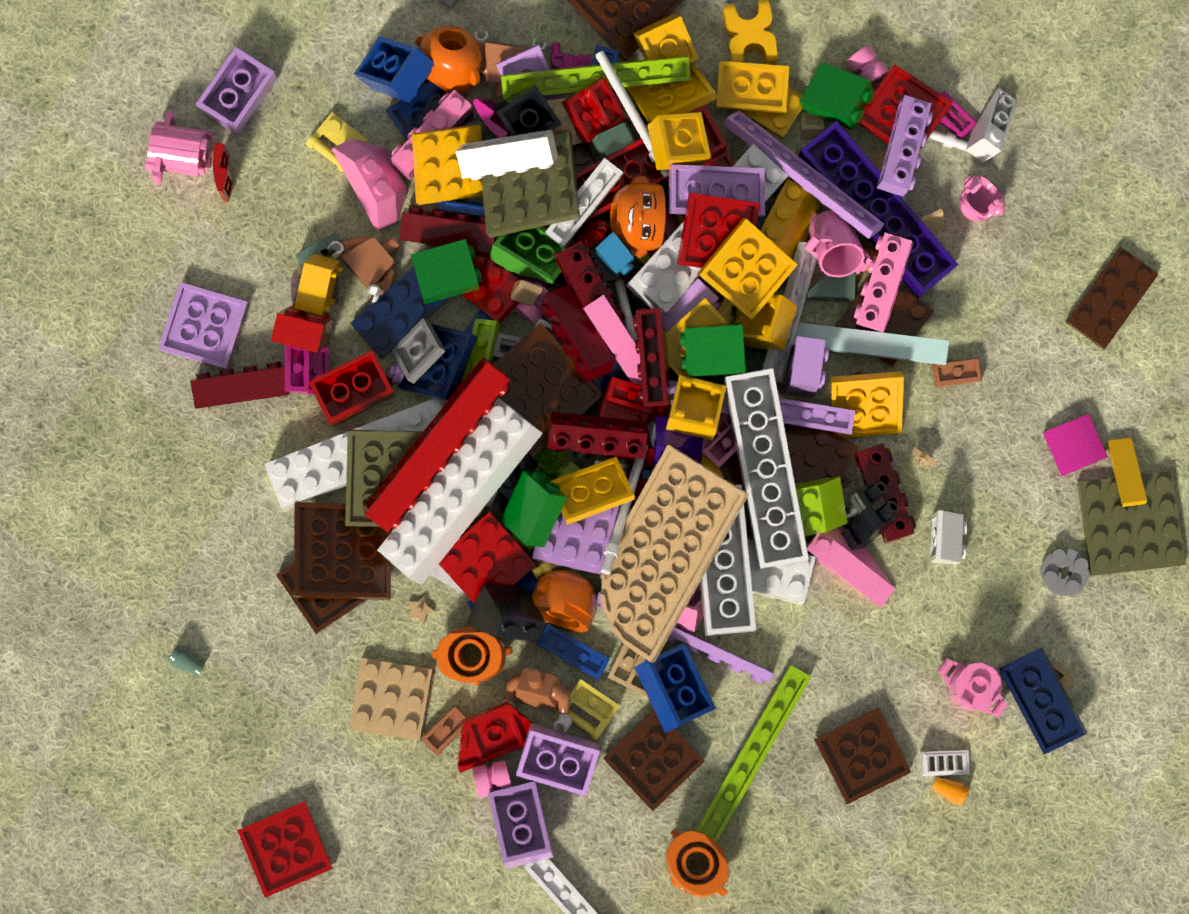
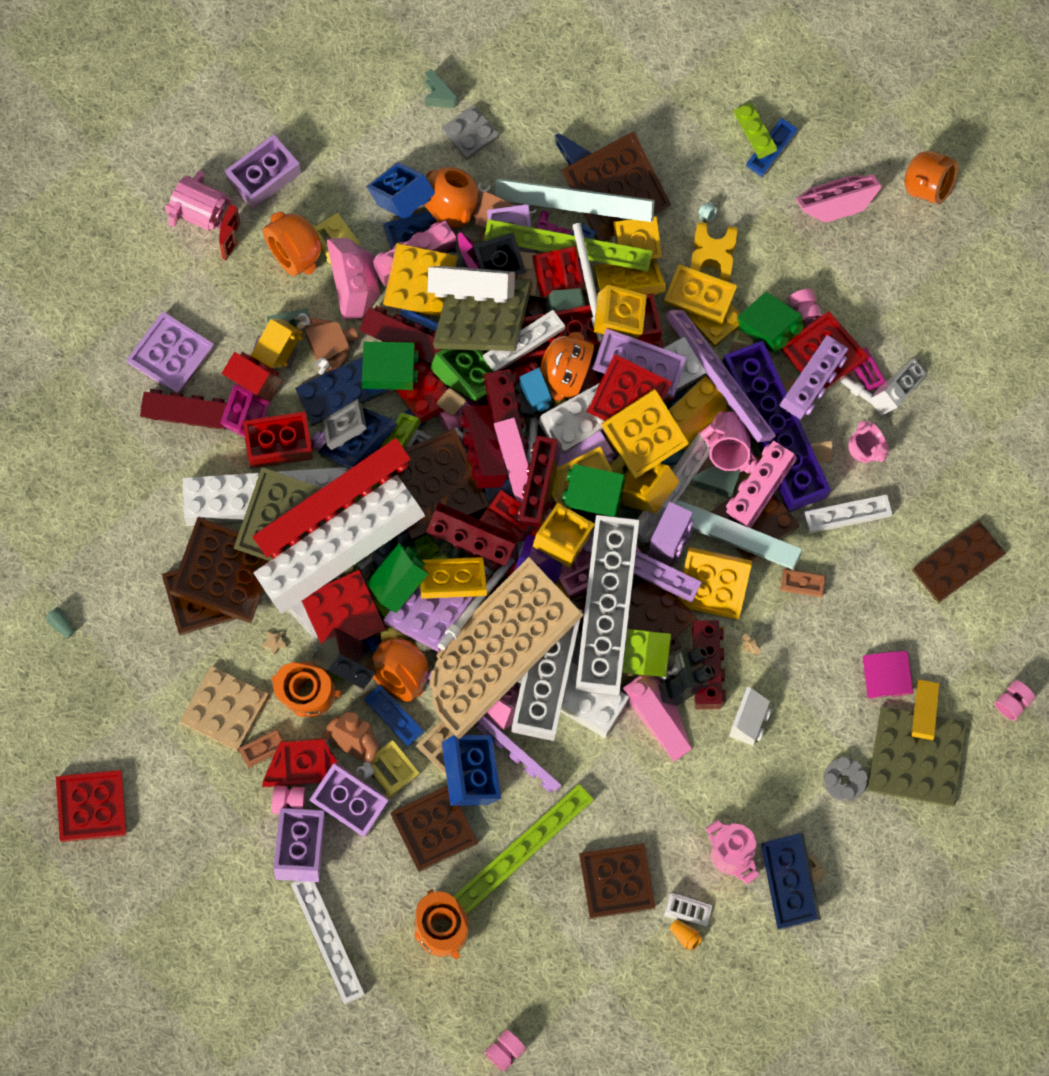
camera: 20 degrees right, 10 degrees down
(296, 163) = (293, 242): none -> orange piece
(586, 23) = (575, 200): none -> light aqua tile
(981, 282) = (847, 514): none -> white plate

